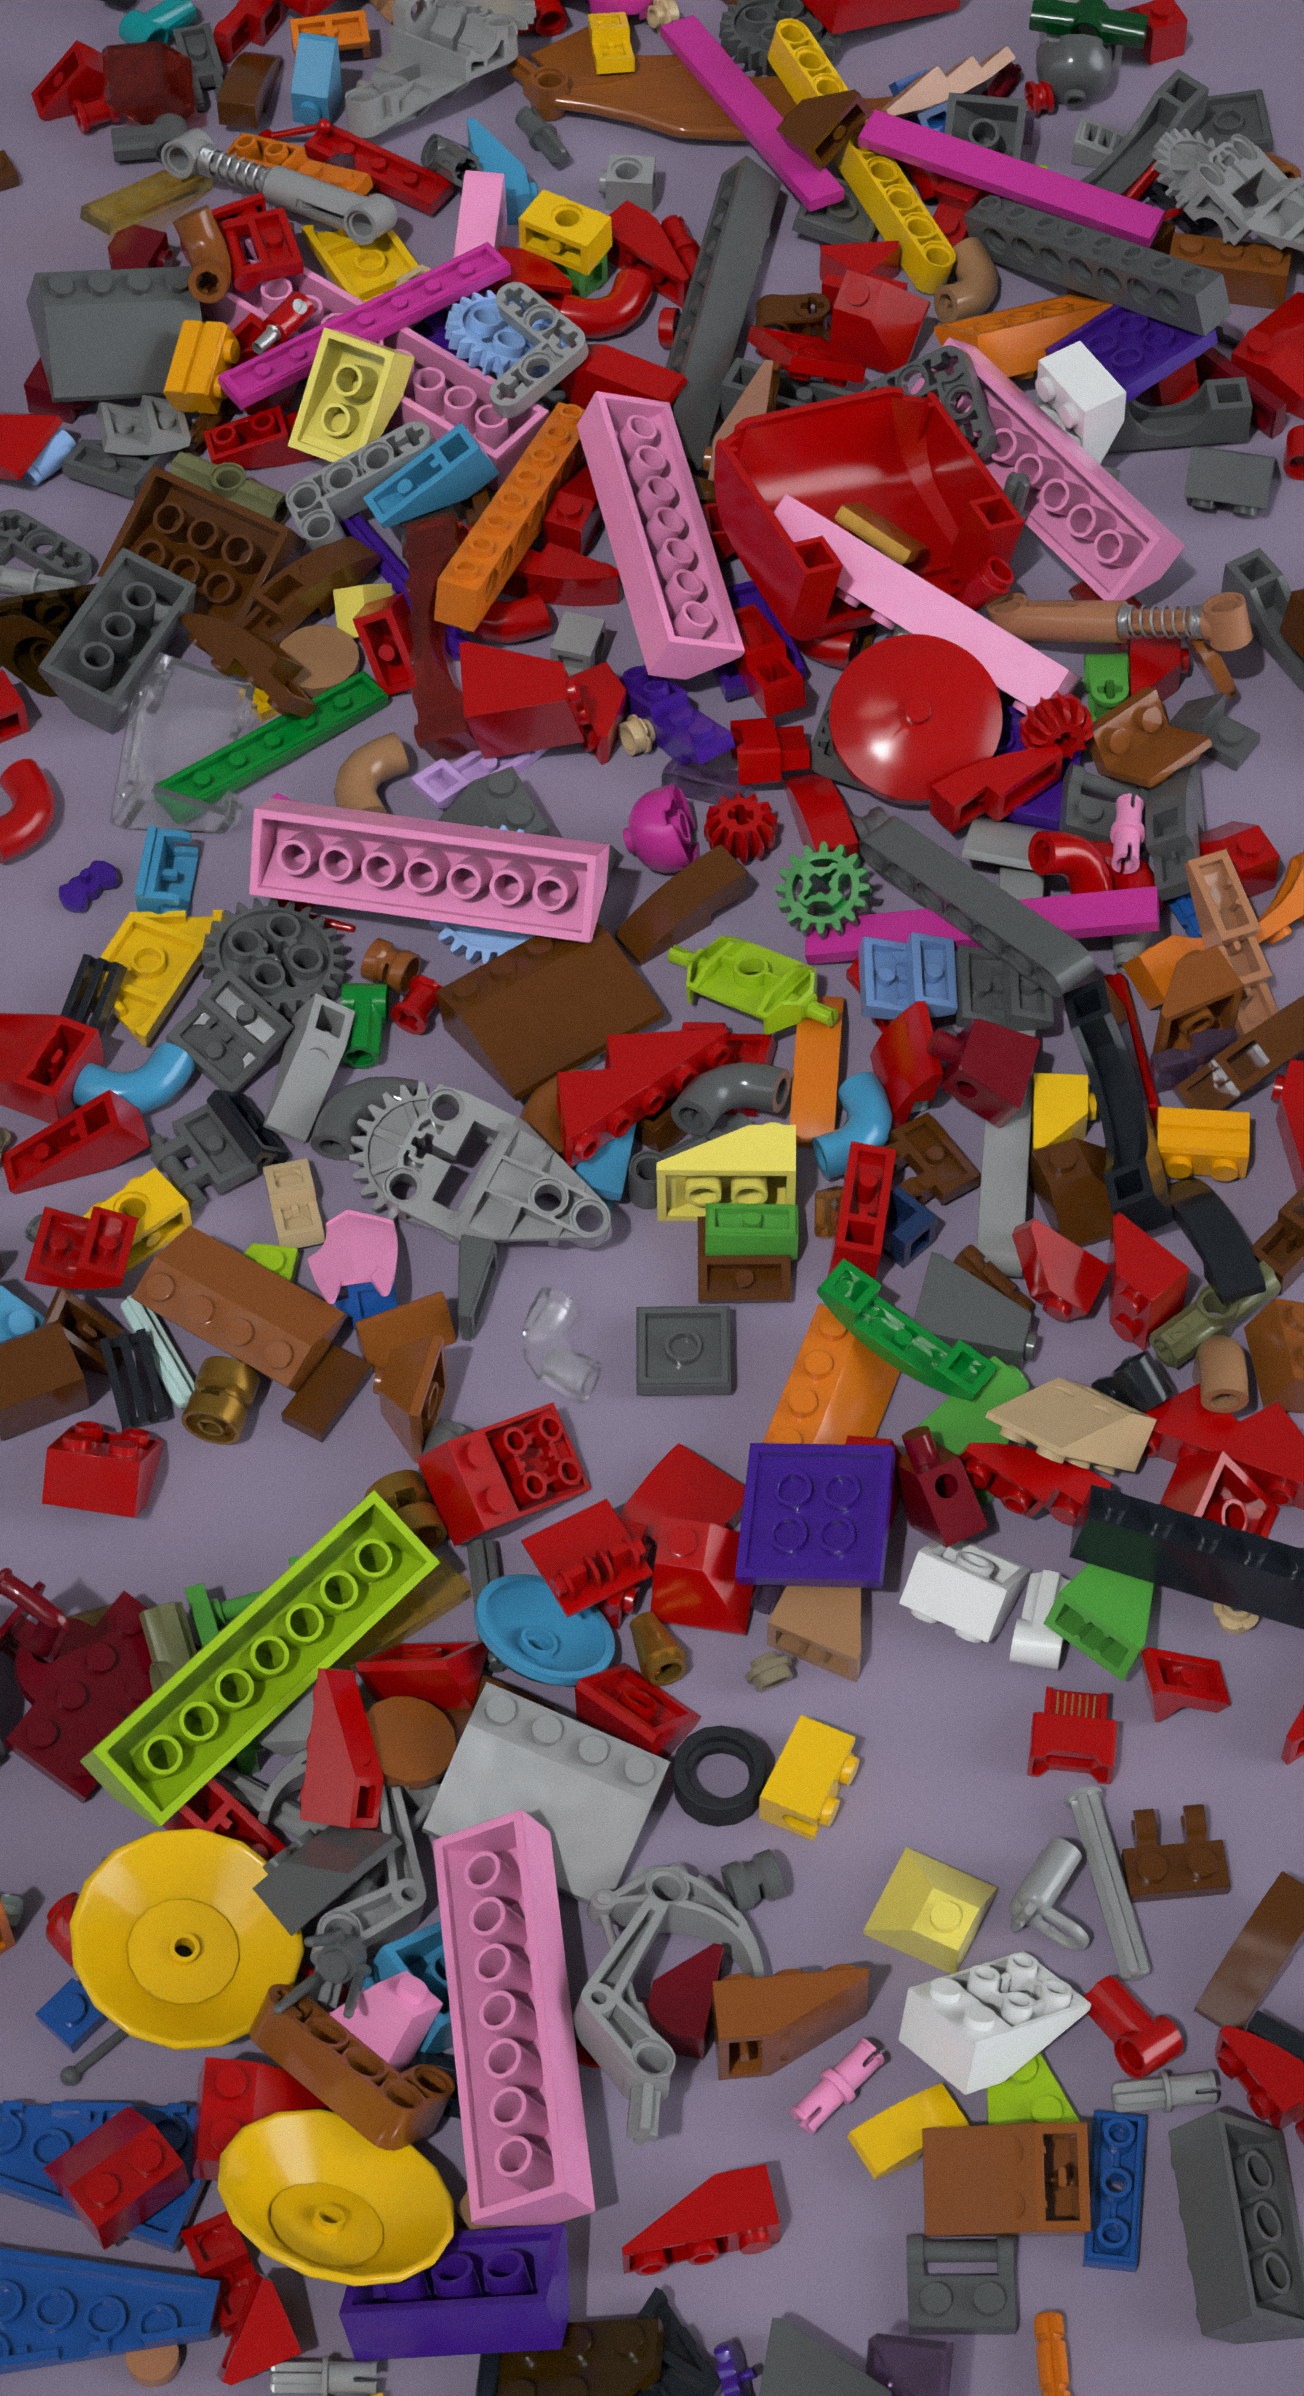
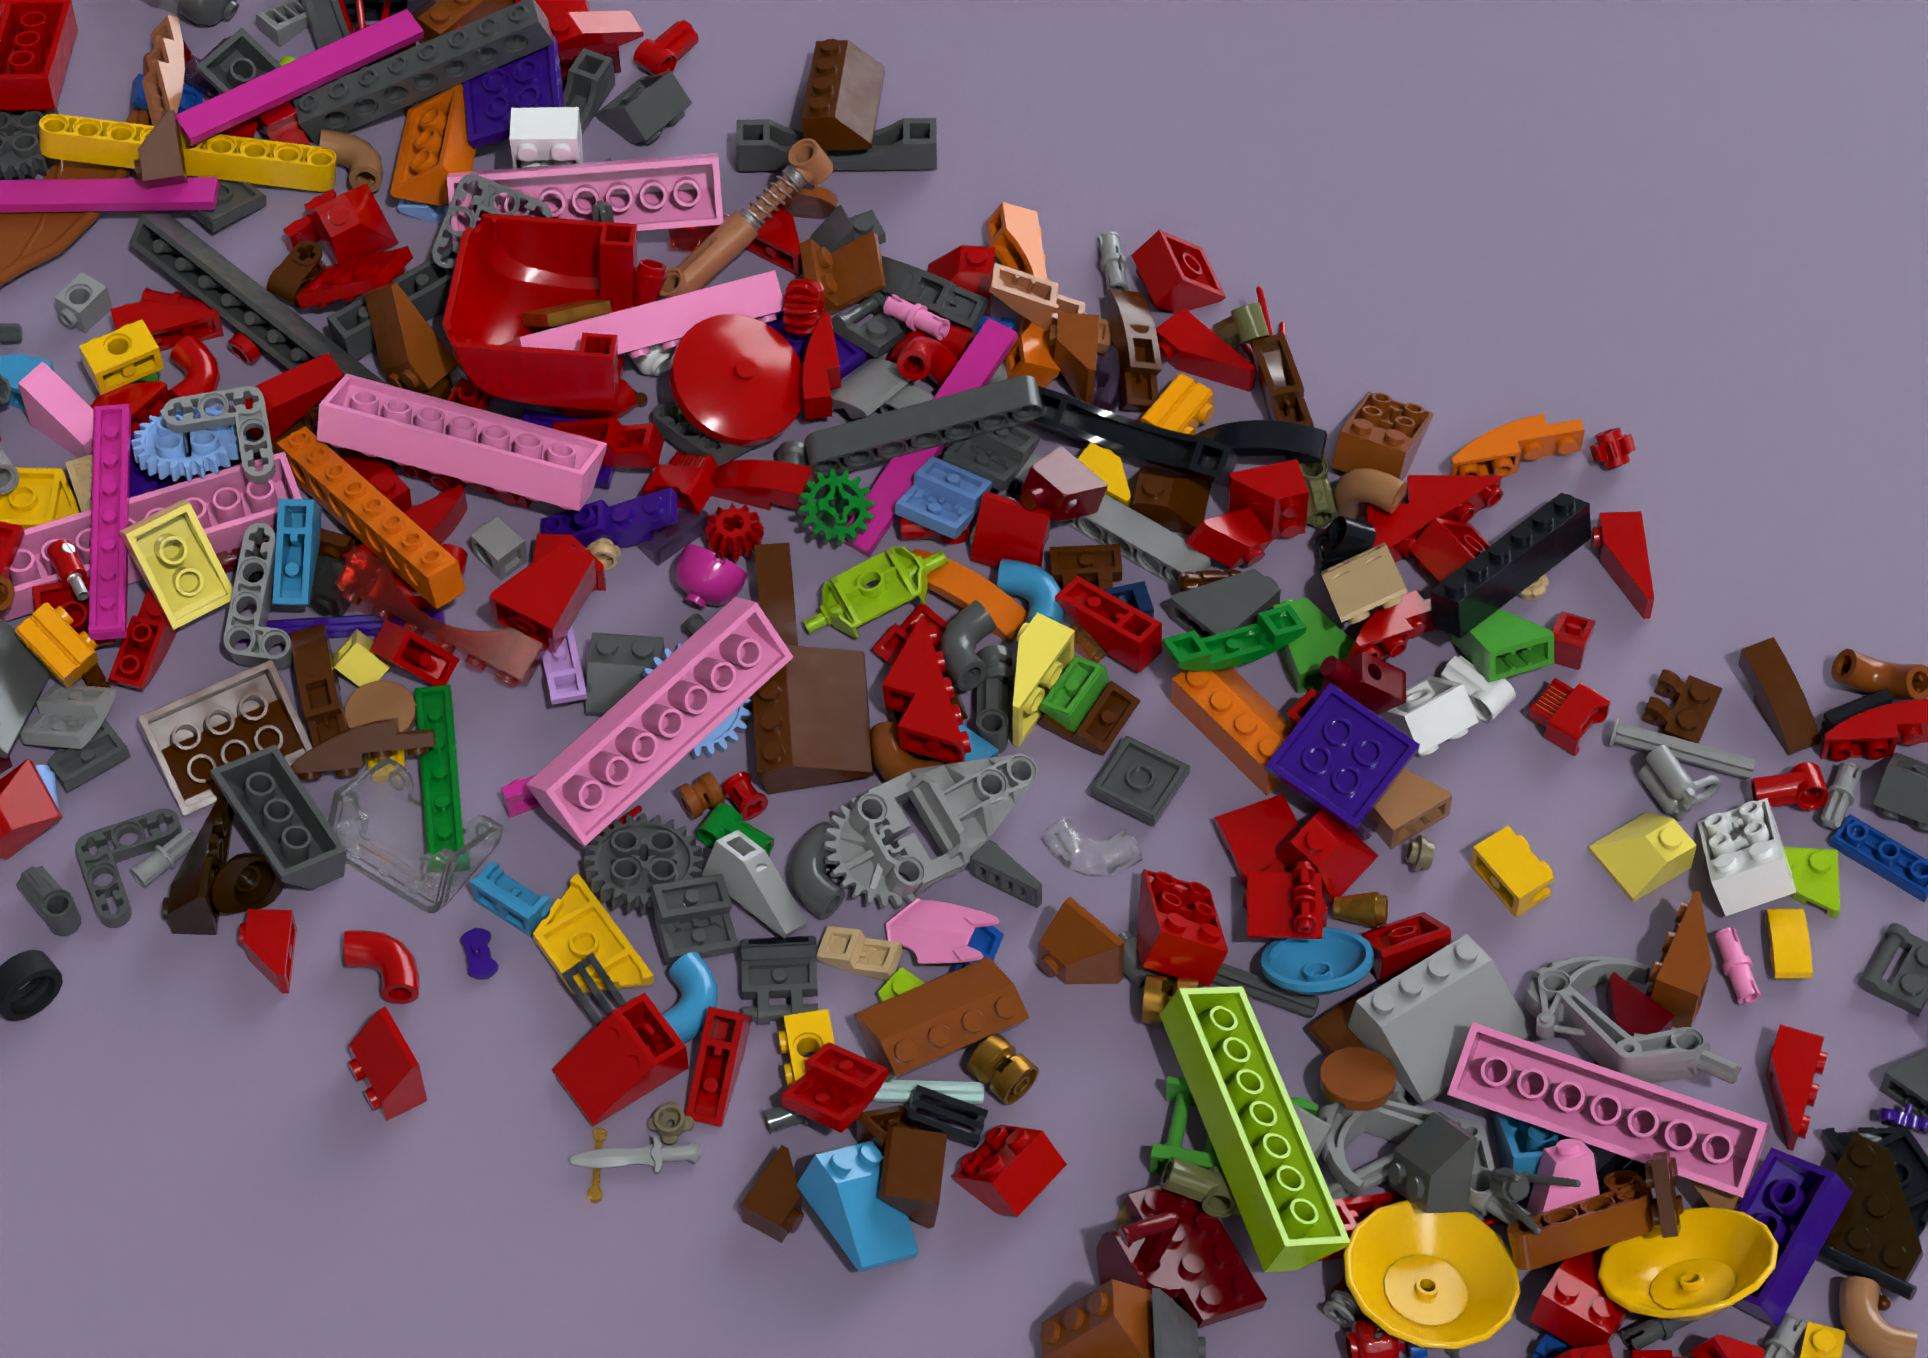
camera: 60 degrees left, 0 degrees up
(231, 483) = (162, 692): olive piece -> none
(327, 1393) = (1044, 1018): reddish brown tile -> none
(342, 1763) = (1368, 1116): red slope -> none
(366, 770) = (516, 733): medium nougat cylinder -> none
(402, 1326) = (1017, 935): dark orange slope -> none
(407, 2126) = (1666, 1205): none -> reddish brown plate
(431, 1671) = (1305, 1042): red slope -> none
(716, 1741) = (1487, 896): black tyre -> none
(753, 1880) = (1568, 934): dark grey wheel -> none
(865, 258) = (279, 211): red slope -> none
(1006, 2180) = (1862, 900): dark orange slope -> none
(1039, 97) = (210, 29): red bush -> none
(1105, 681) = (765, 258): bright green piece -> none

